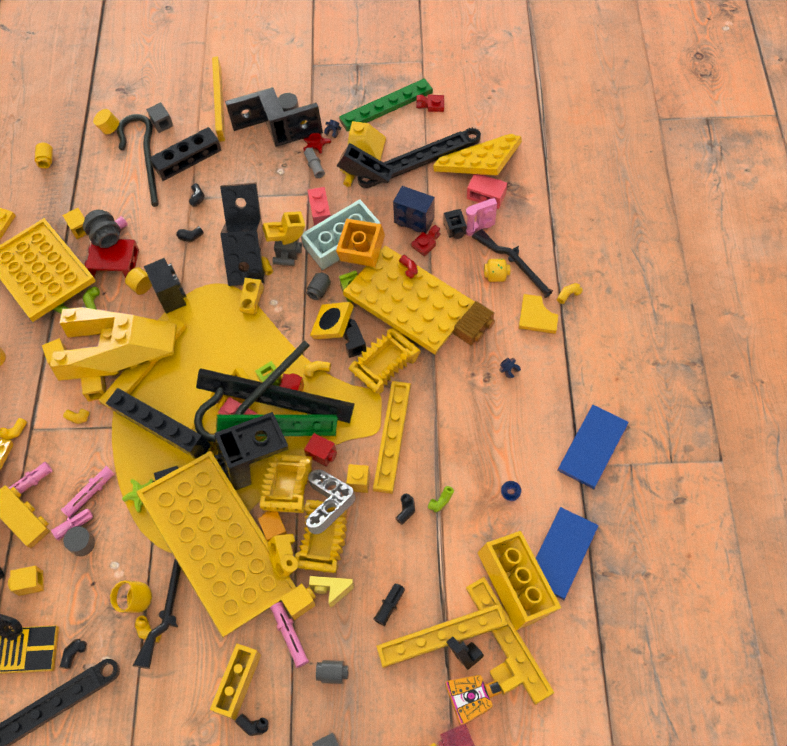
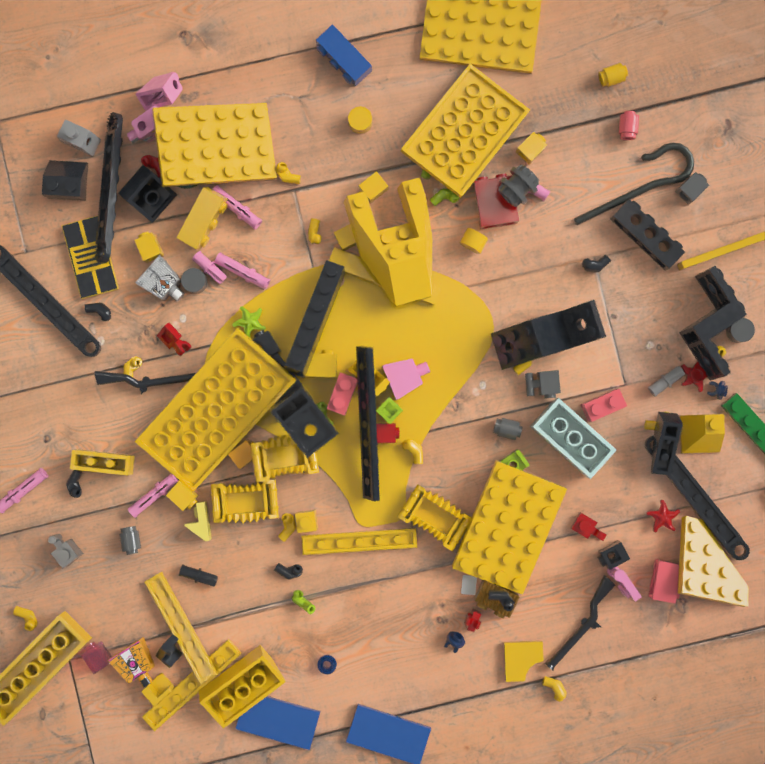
camera: 75 degrees right, 25 degrees up
(65, 575) = (161, 280): none -> light grey torso
(90, 151) = (628, 125): none -> coral brick
(106, 121) = (672, 129): yellow piece -> none
(130, 574) = (171, 338): none -> red plate
(138, 597) = (154, 353): yellow helmet -> none
(166, 285) = (470, 272): black brick -> none
(189, 236) = (542, 272): black arm -> none
(242, 356) = (405, 376): none -> bright pink torso
(251, 295) = (479, 362): yellow leg -> none
(252, 398) = (349, 401): pearl dark grey piece -> none
(282, 555) = (216, 472): yellow leg -> none
(287, 230) = (557, 381): yellow brick -> none
(289, 424) = (340, 443): green plate -> none
(320, 519) = (276, 507): light grey beam -> none
(321, 450) = (327, 479): red brick -> none
(332, 320) = (467, 454): yellow tile -> none
(355, 339) = (461, 475): black leg -> none
(360, 242) = (553, 468): light orange brick -> none
(363, 500) = (289, 526): none -> yellow arm
(411, 265) = (542, 524): red arm -> none
(414, 209) = (617, 509): dark blue brick -> none
(430, 183) = (663, 517): none -> red animal
(457, 347) = (468, 585): none -> white sticker
(473, 311) = (503, 597): none -> black arm
(491, 345) = (472, 620): none -> red plate
(496, 270) = (565, 609): yellow head -> none

